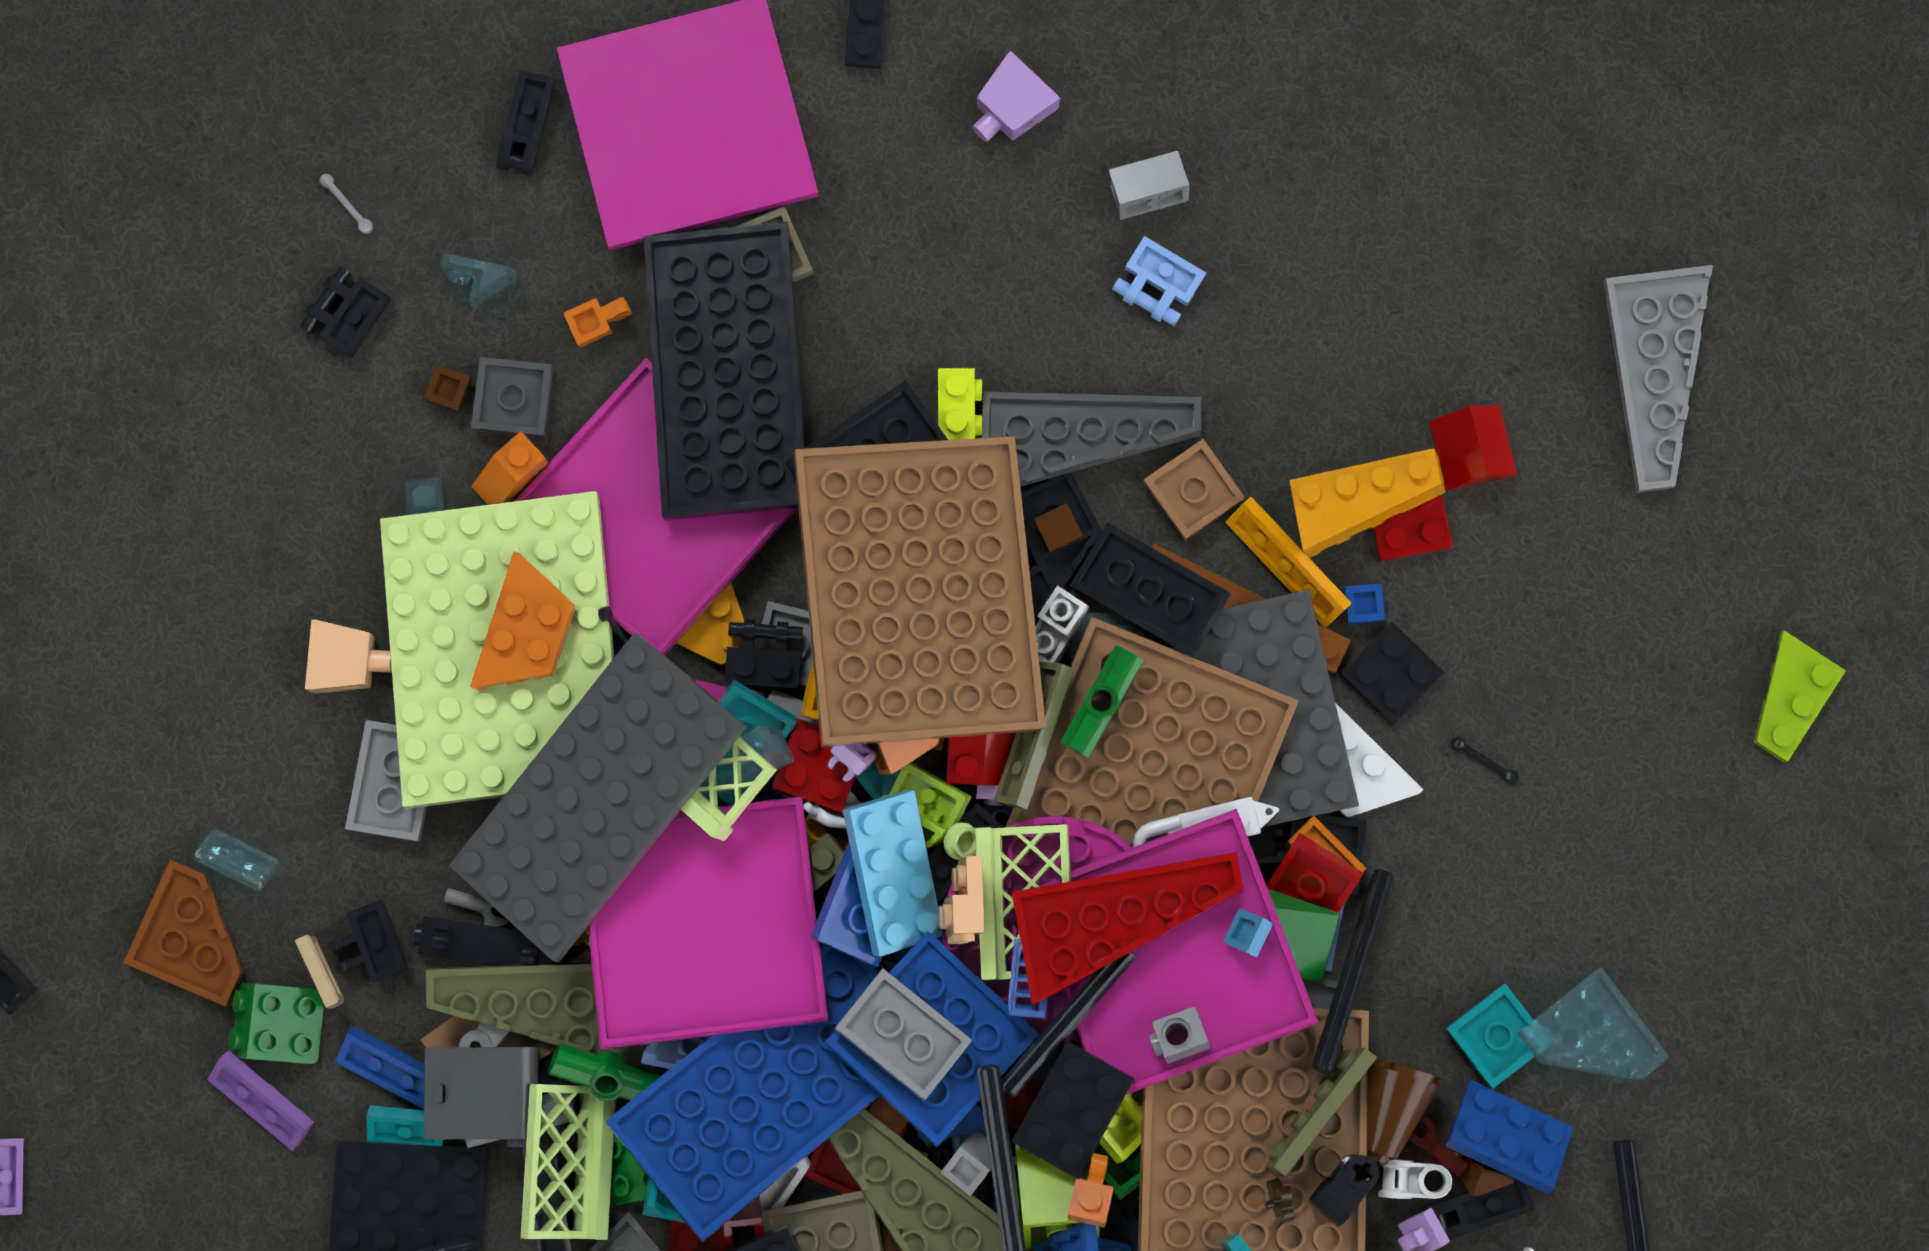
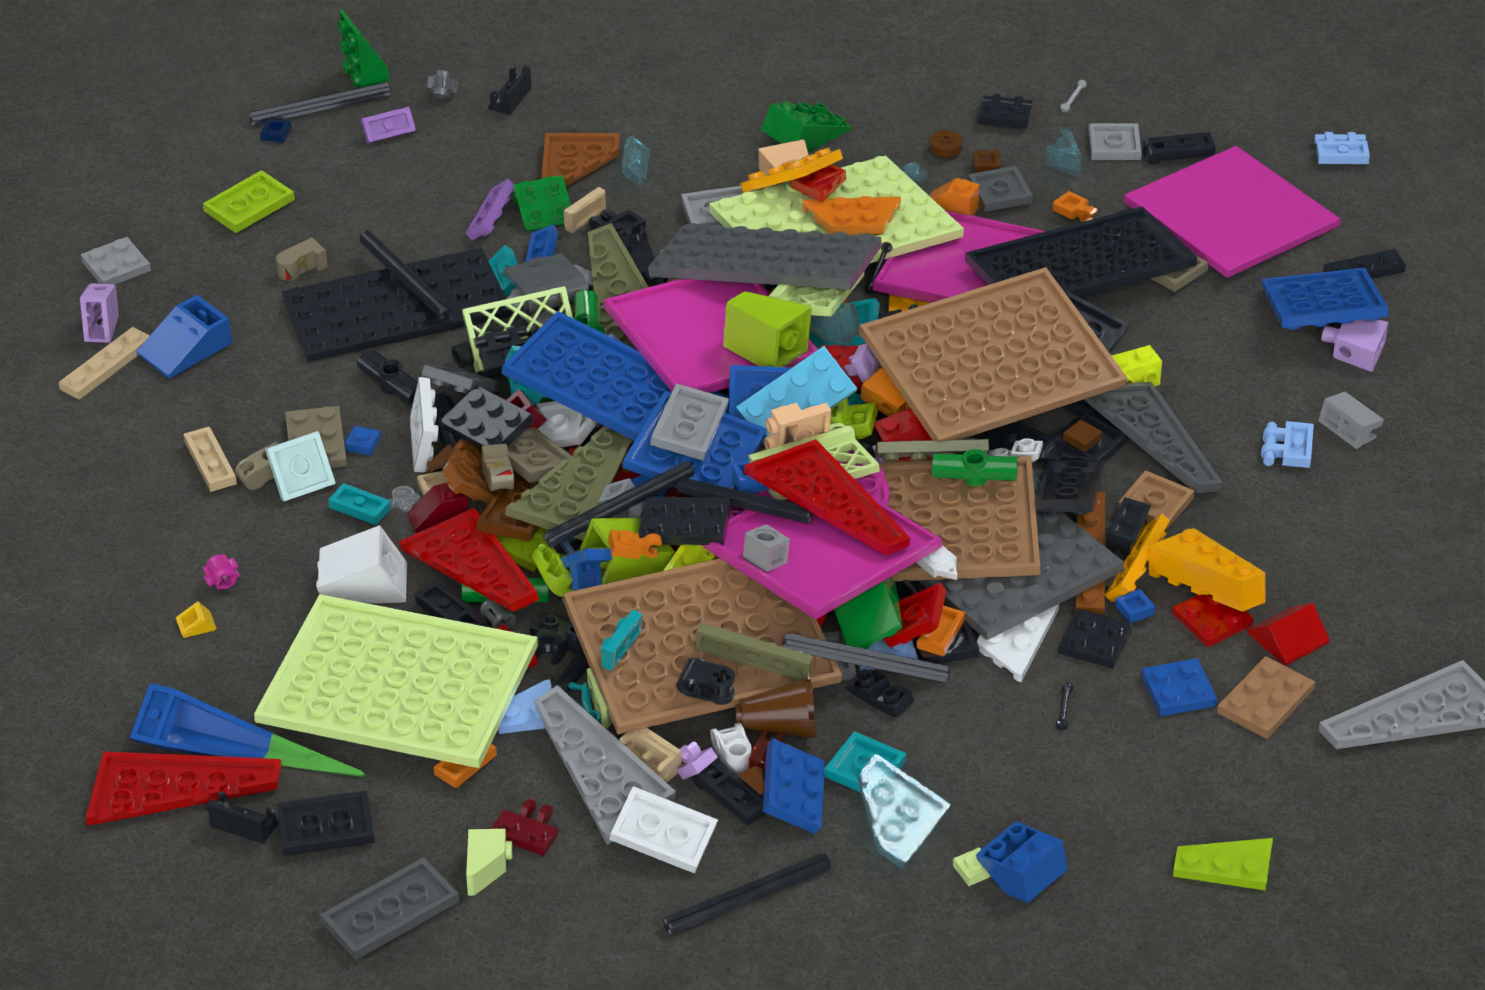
camera: 70 degrees right, 40 degrees down
(261, 596) = (803, 121): none -> green slope
(383, 424) = (945, 143): none -> reddish brown wheel
(398, 670) = (791, 169): none -> light orange plate
(439, 645) = (821, 182): none -> red wing
(470, 197) = (1114, 141): none -> light grey tile
(615, 1199) = (494, 354): none -> black plate
(771, 867) = (766, 329): none -> lime slope
(932, 104) = (1324, 298): none -> blue plate
(1236, 550) = (1127, 525): none -> black hinge
(1247, 932) = (857, 558): dark azure plate -> none
(1281, 1200) = (678, 644): dark brown piece -> none
(1389, 964) = (877, 692): none -> black slope
(1508, 615) = (1179, 687): none -> blue plate
(1562, 524) = (1266, 697): none -> medium nougat plate
(1693, 978) = (970, 868): none -> yellowish green plate
(1720, 927) = (1023, 861): none -> blue slope

